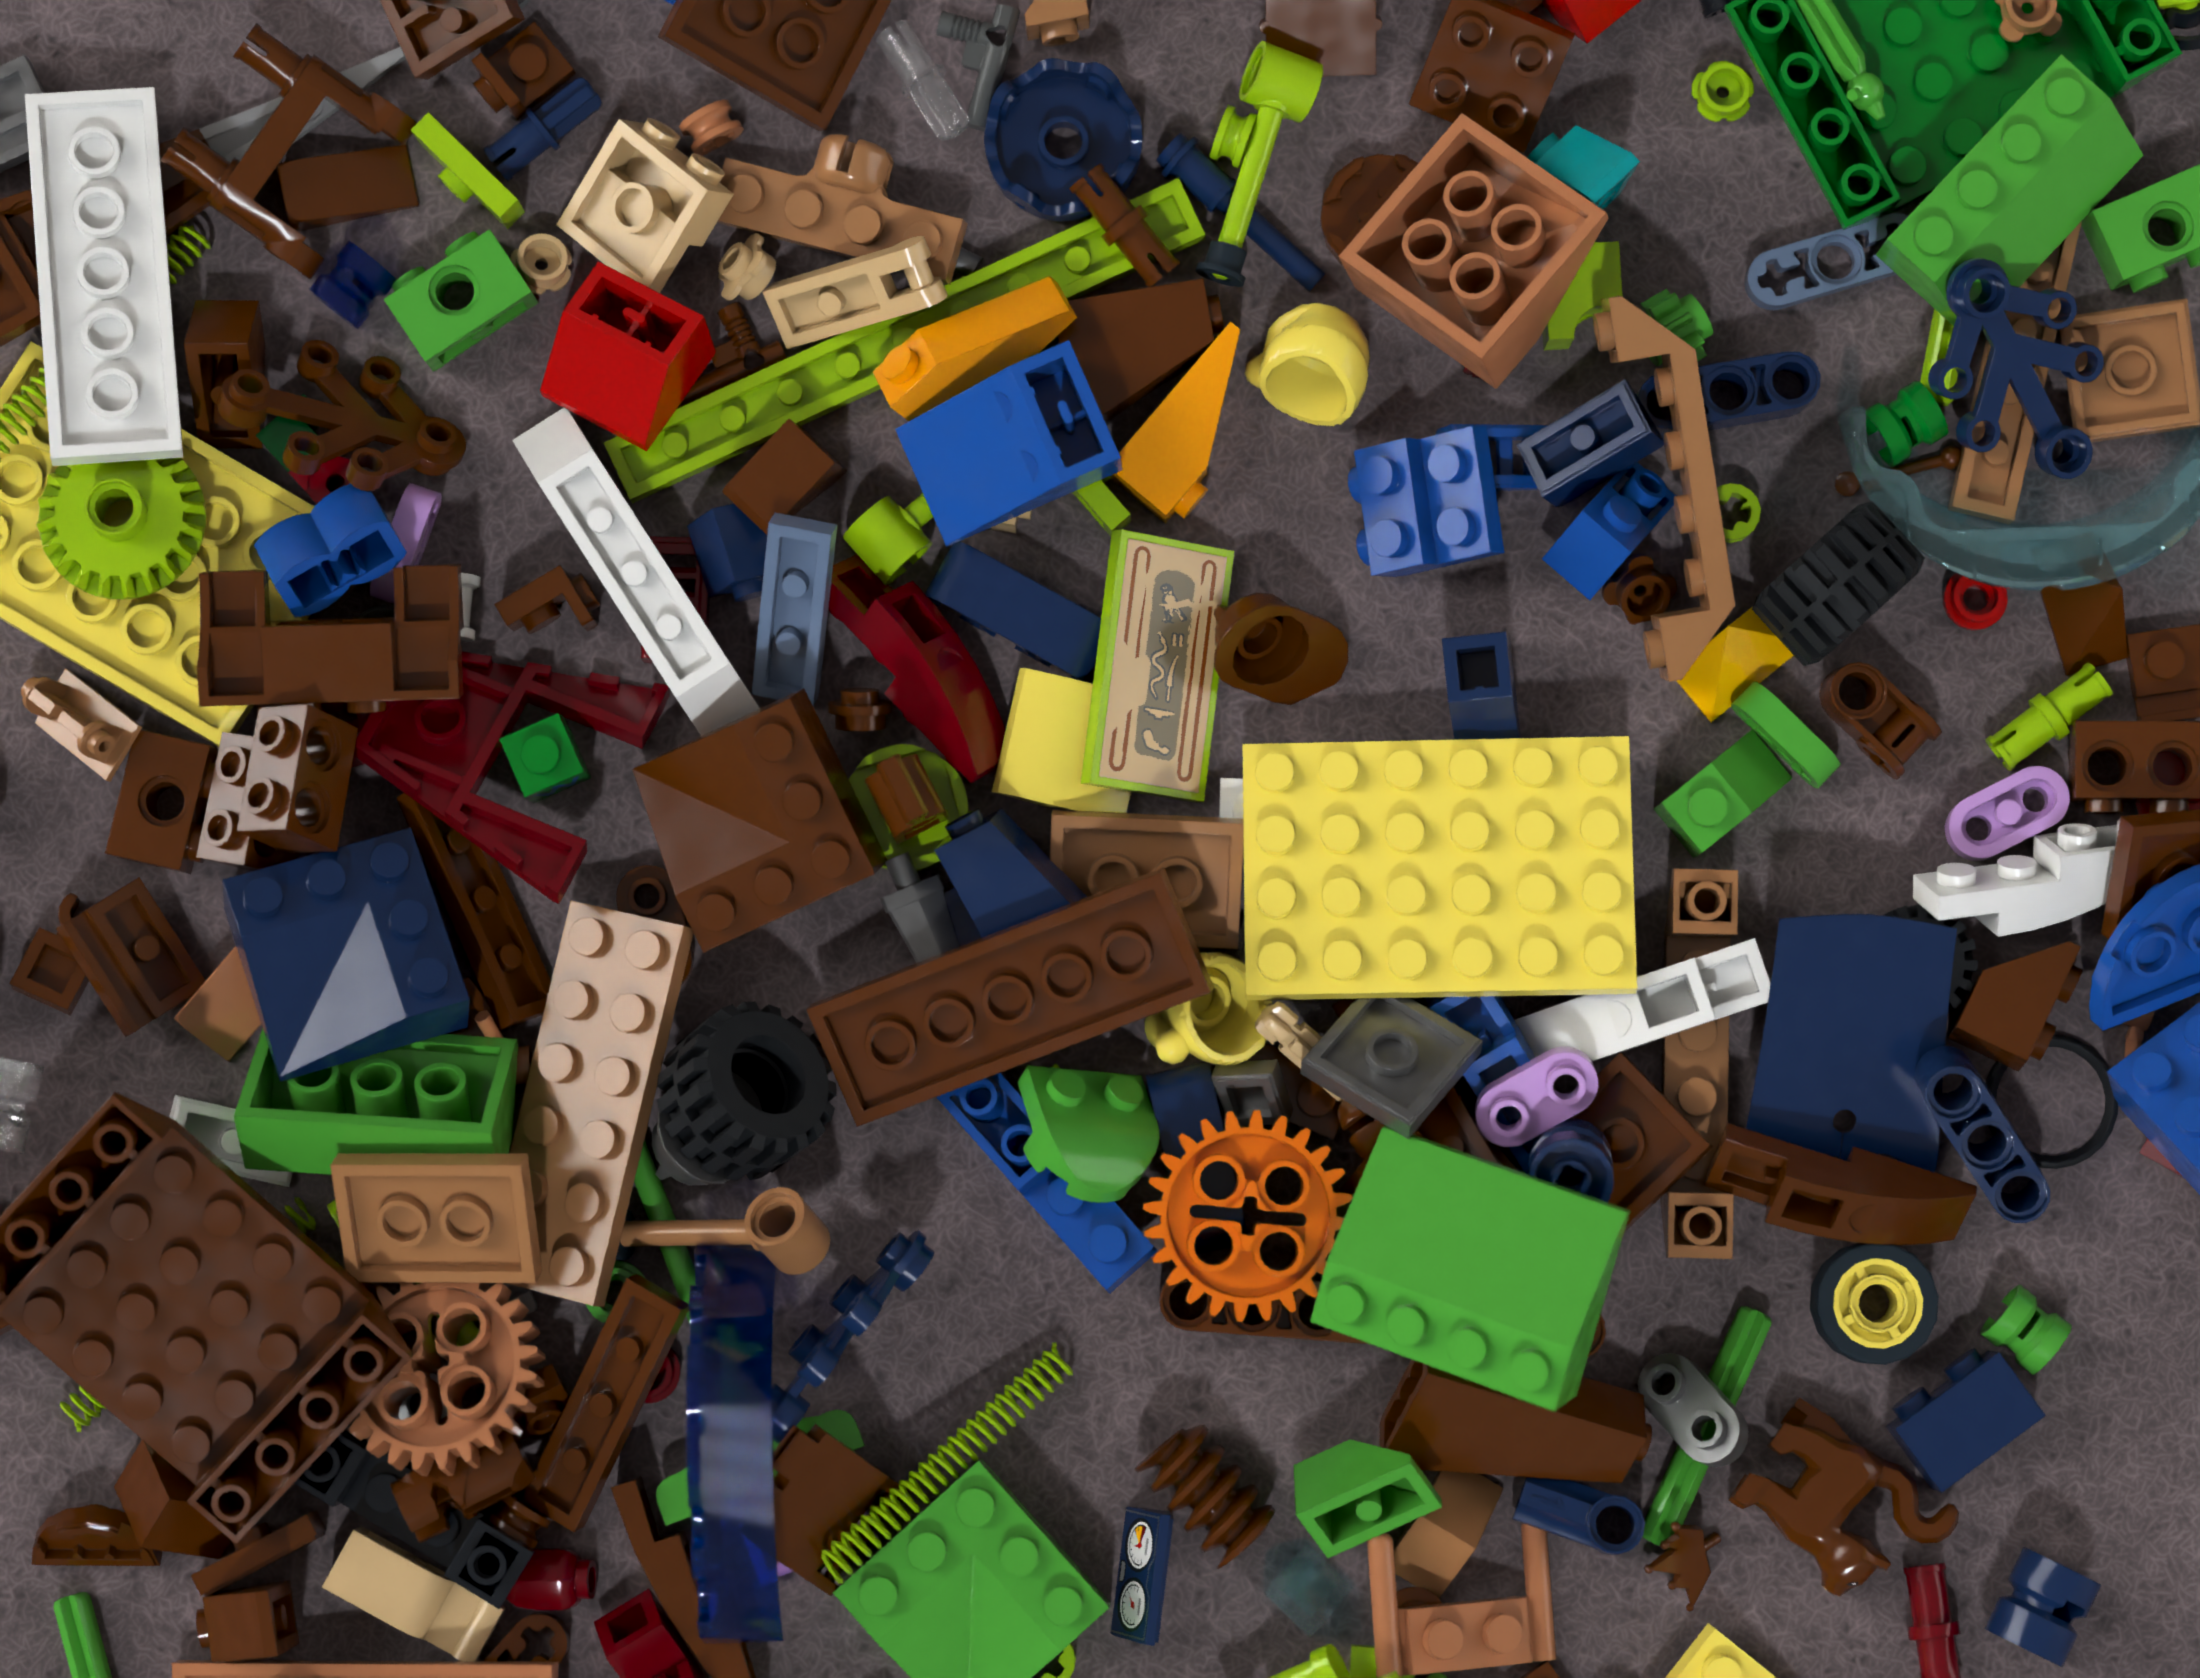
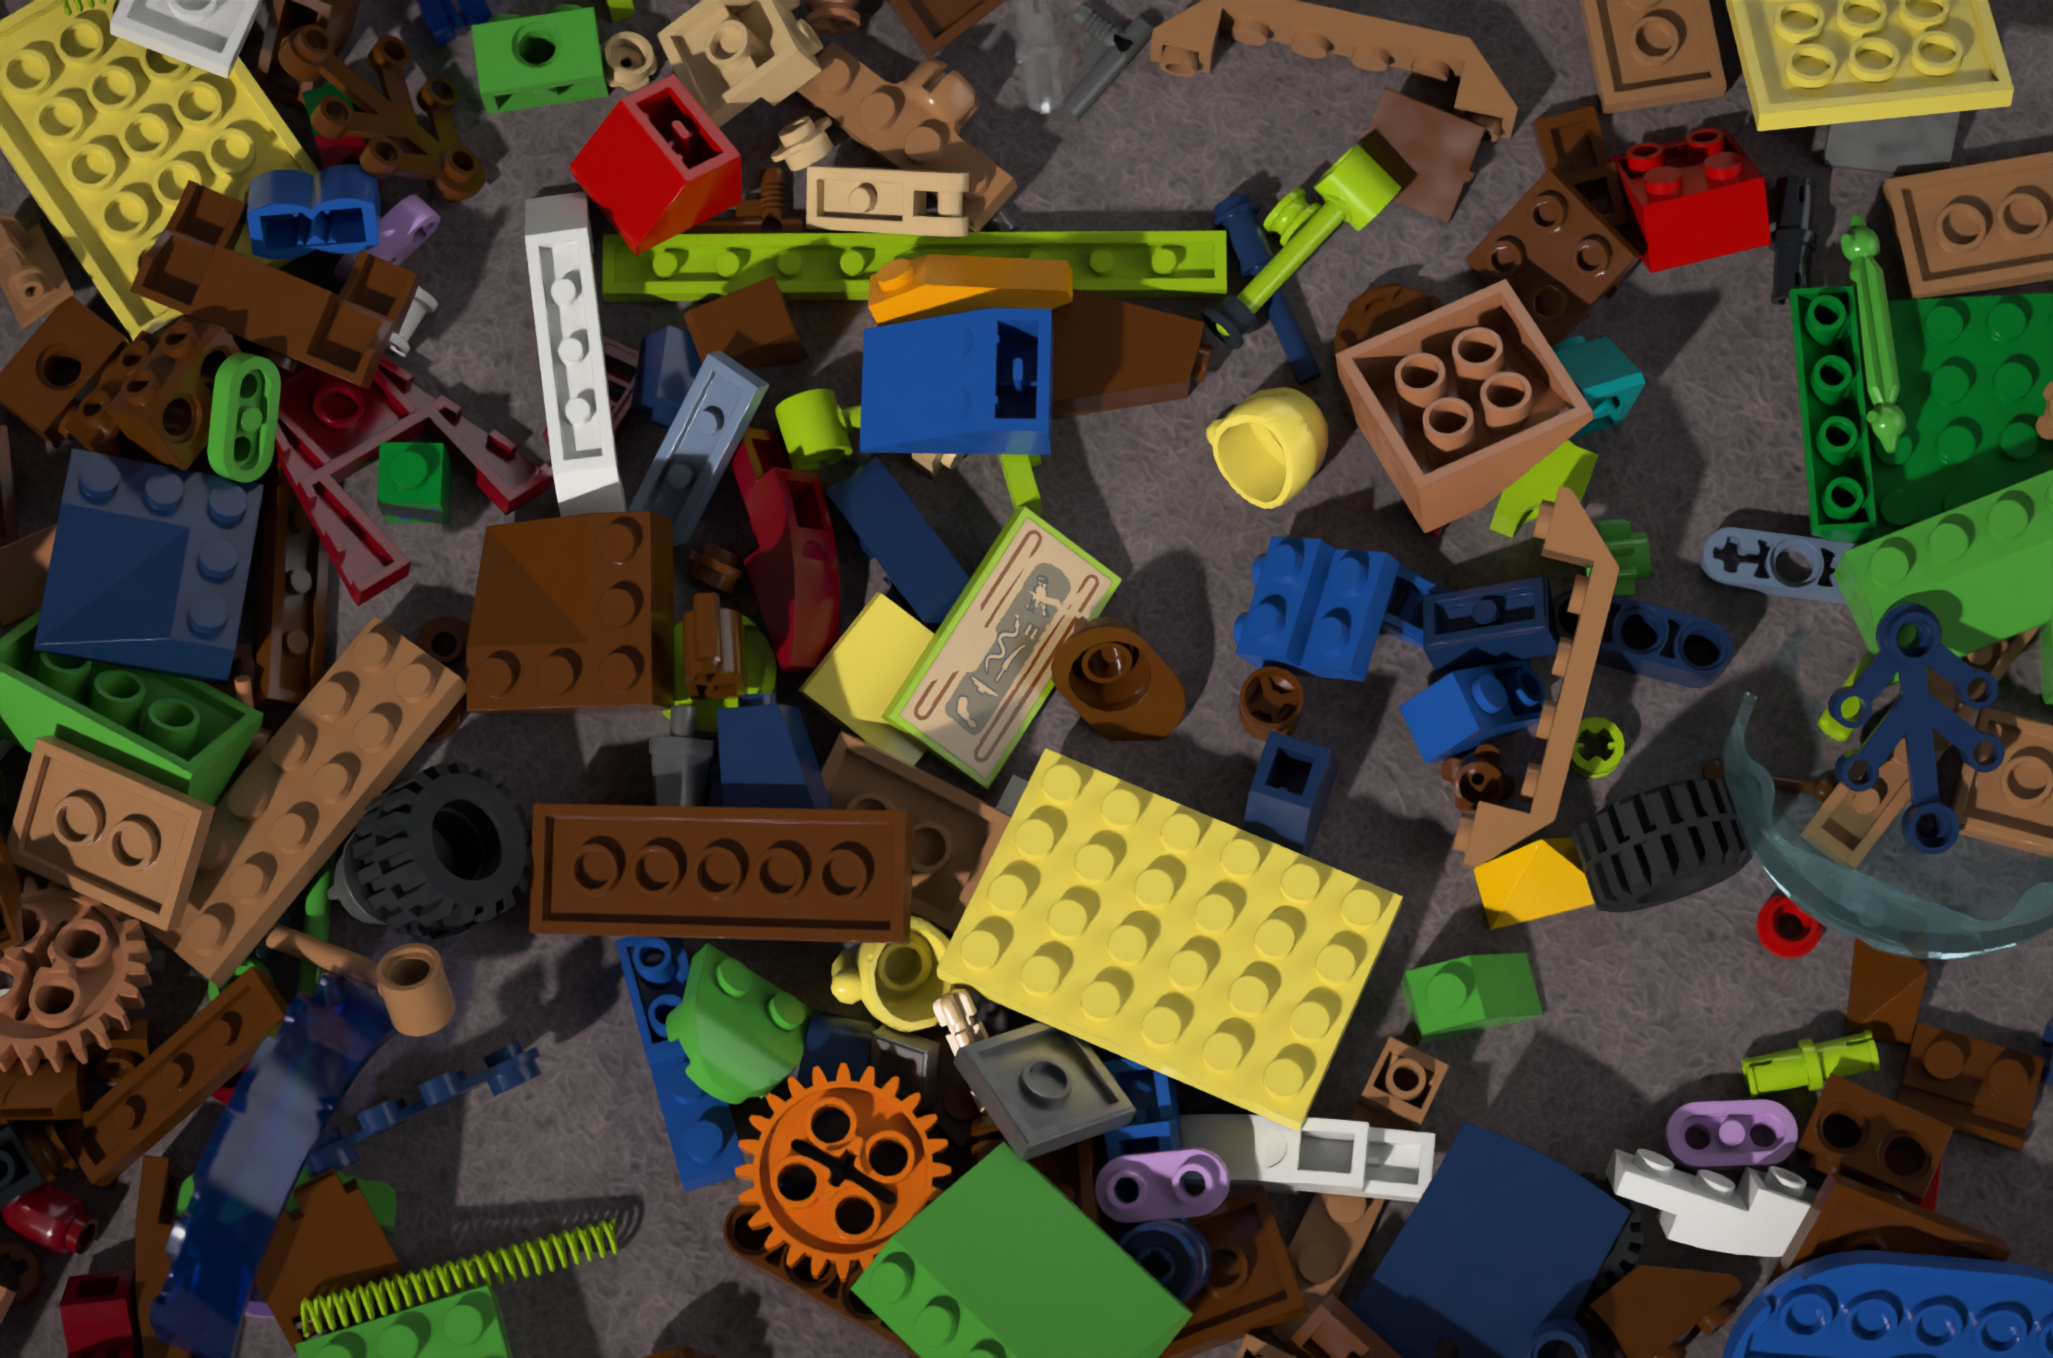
camera: 25 degrees right, 10 degrees down
(130, 557) = (153, 143): lime gear -> none
(366, 776) = (244, 416): none -> bright green plate
(537, 602) = (477, 344): reddish brown bracket -> none
(1053, 97) = (1146, 115): dark blue plate -> none
(1124, 225) = (1156, 246): reddish brown pin -> none
(1176, 442) = (1114, 458): light orange slope -> none
(1424, 598) = (1270, 692): none -> reddish brown wheel
(1725, 75) = (1762, 357): lime plate -> none
(1786, 734) = (1554, 969): bright green beam -> none
(1880, 719) = (1649, 994): reddish brown piece -> none
(1906, 422) = (1793, 736): green wheel -> none

